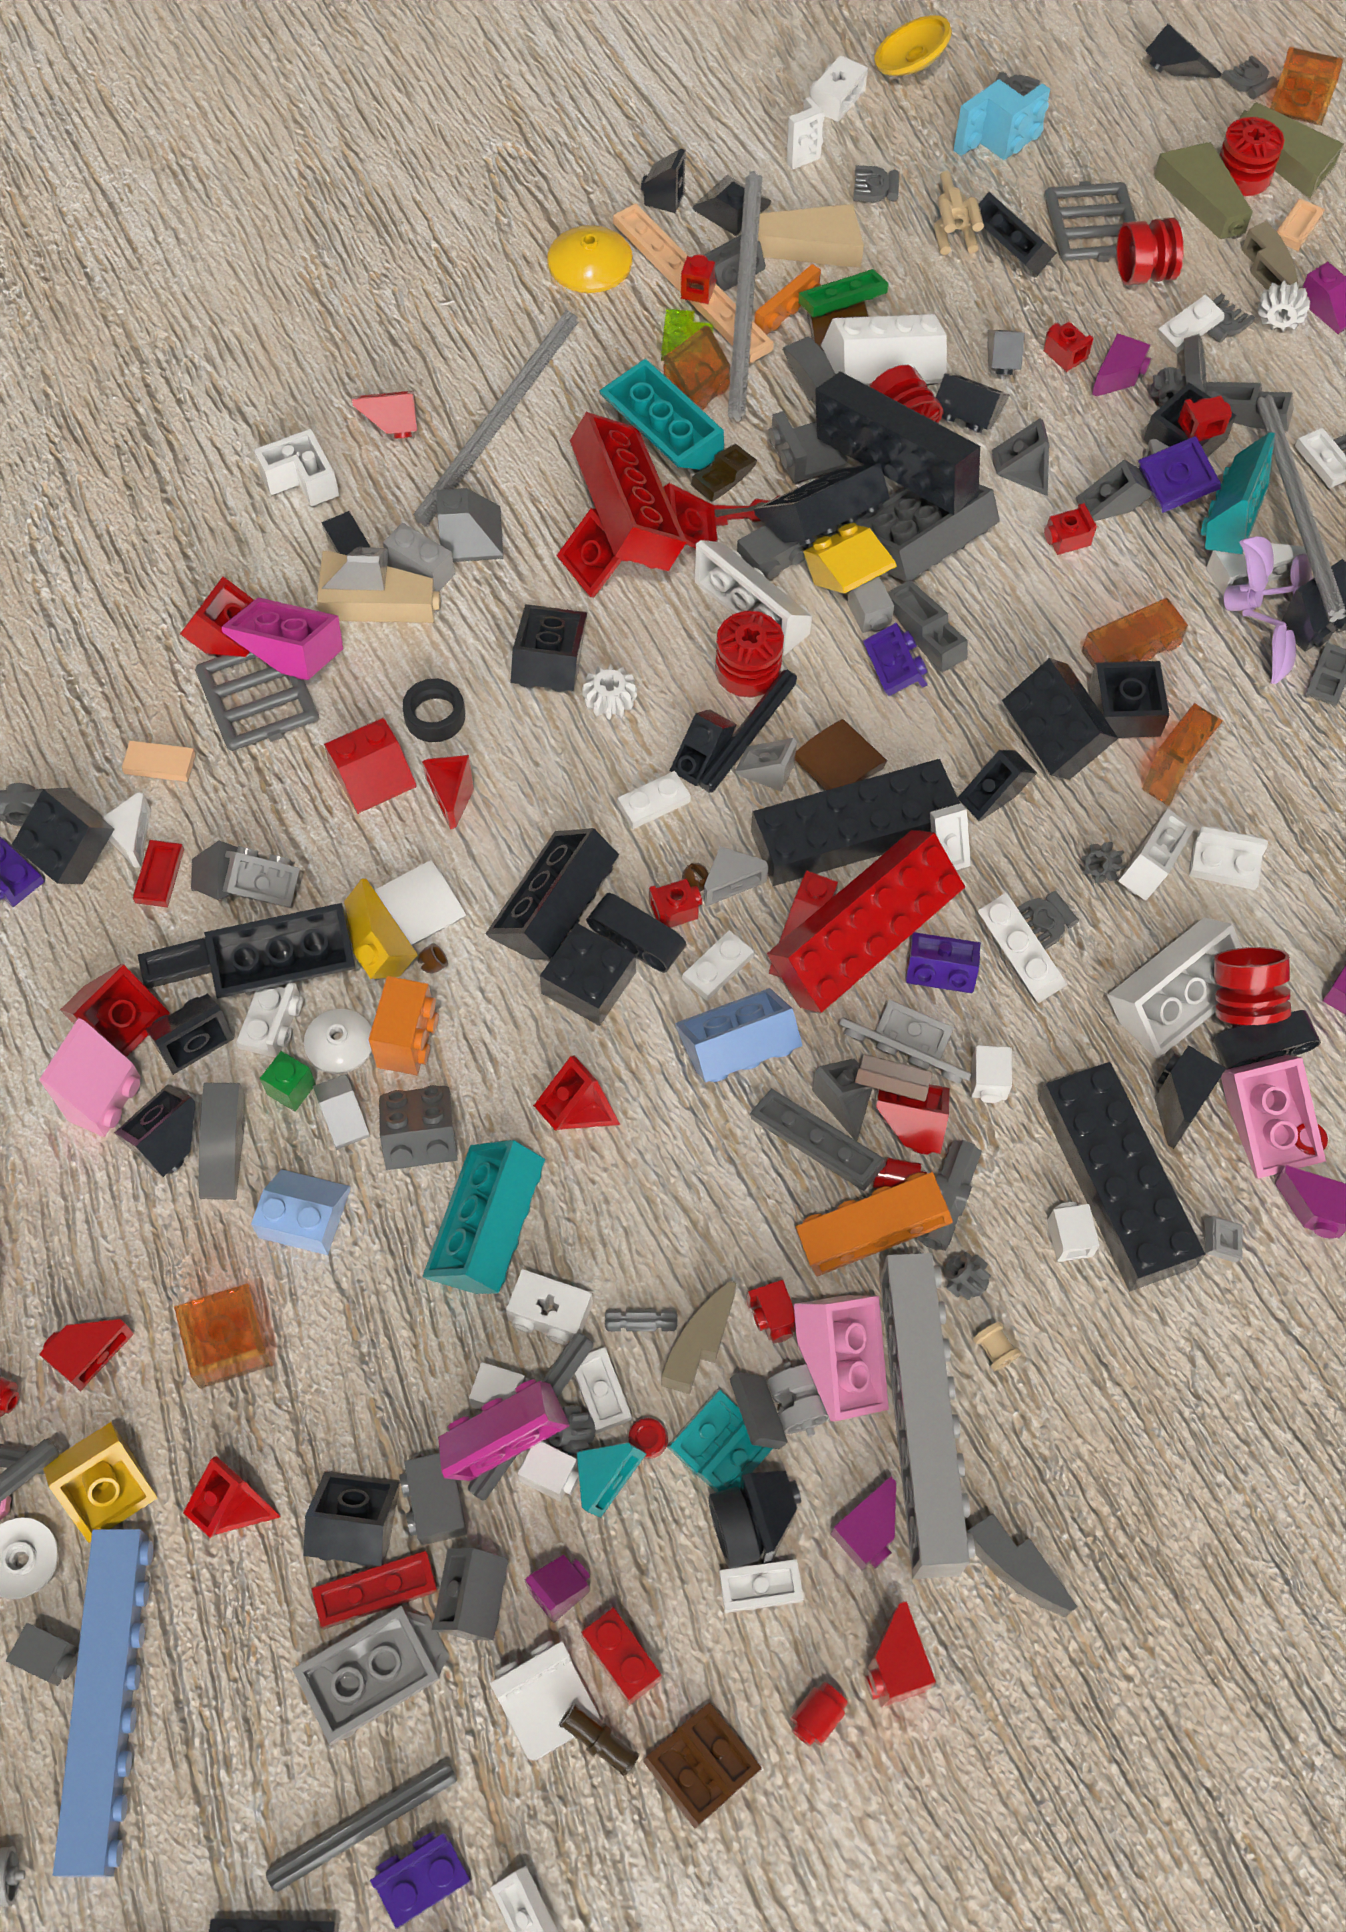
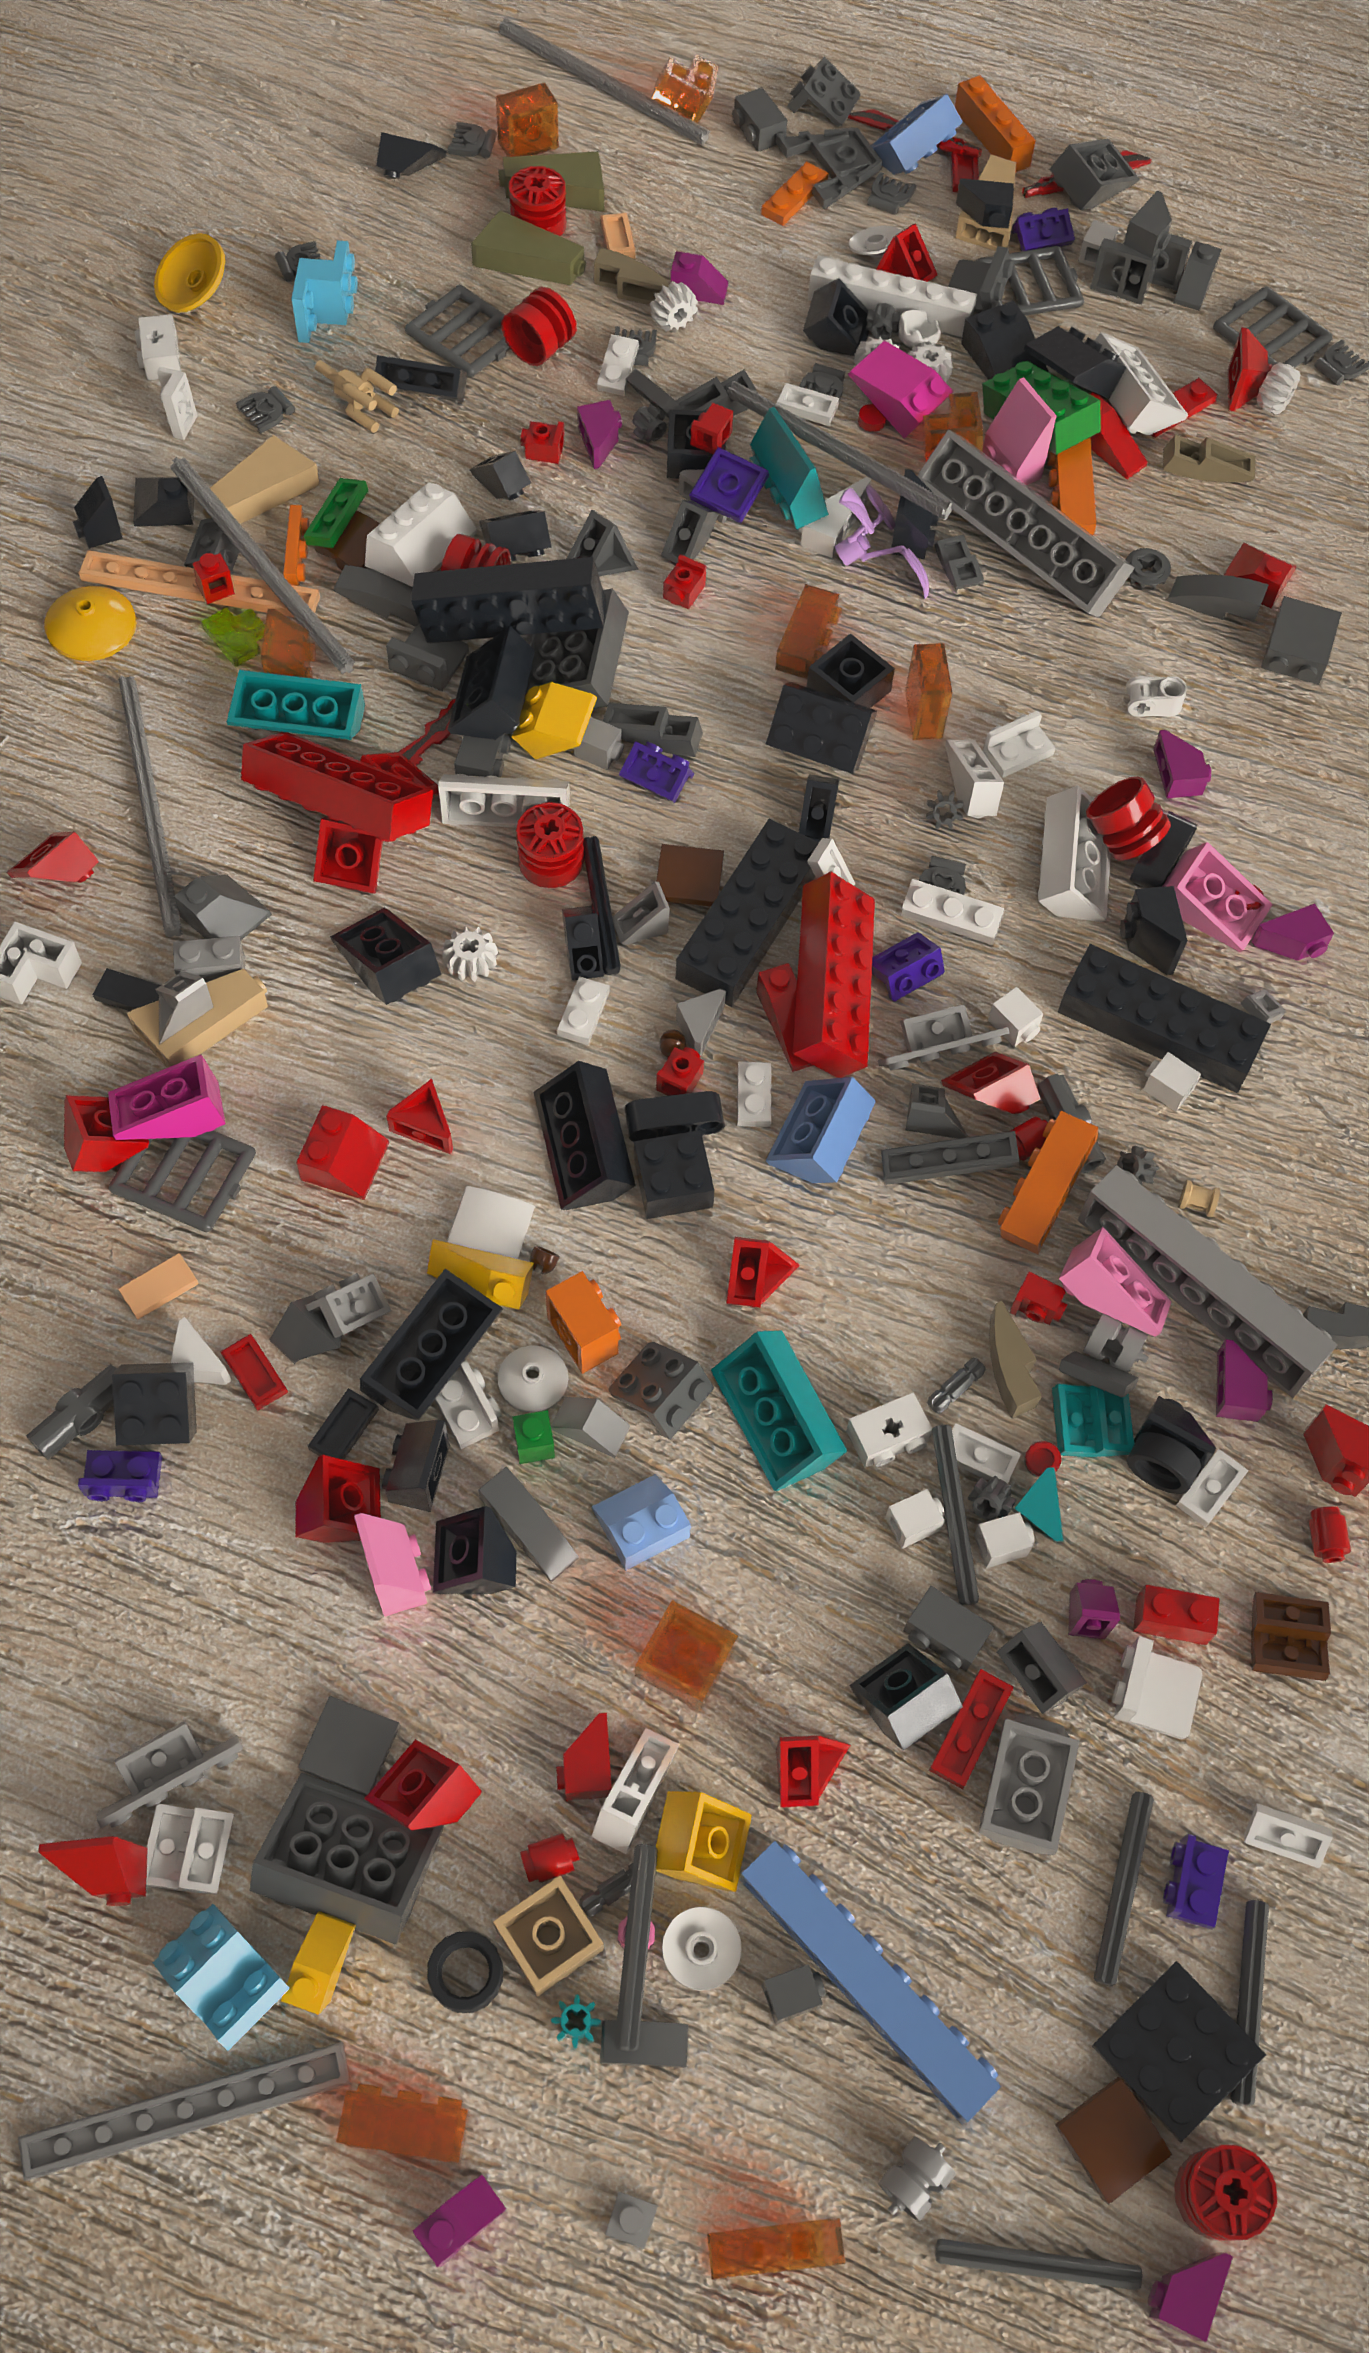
camera: 45 degrees left, 0 degrees up
(92, 1399) = (634, 1791): none -> white slope
(433, 689) = (341, 1050): black tyre -> none
(500, 1431) = (959, 1534): dark pink slope -> none
(599, 1739) = (1216, 1681): dark brown pin -> none
(726, 471) = (380, 721): dark brown slope -> none
(894, 1077) = (960, 1071): slope -> none

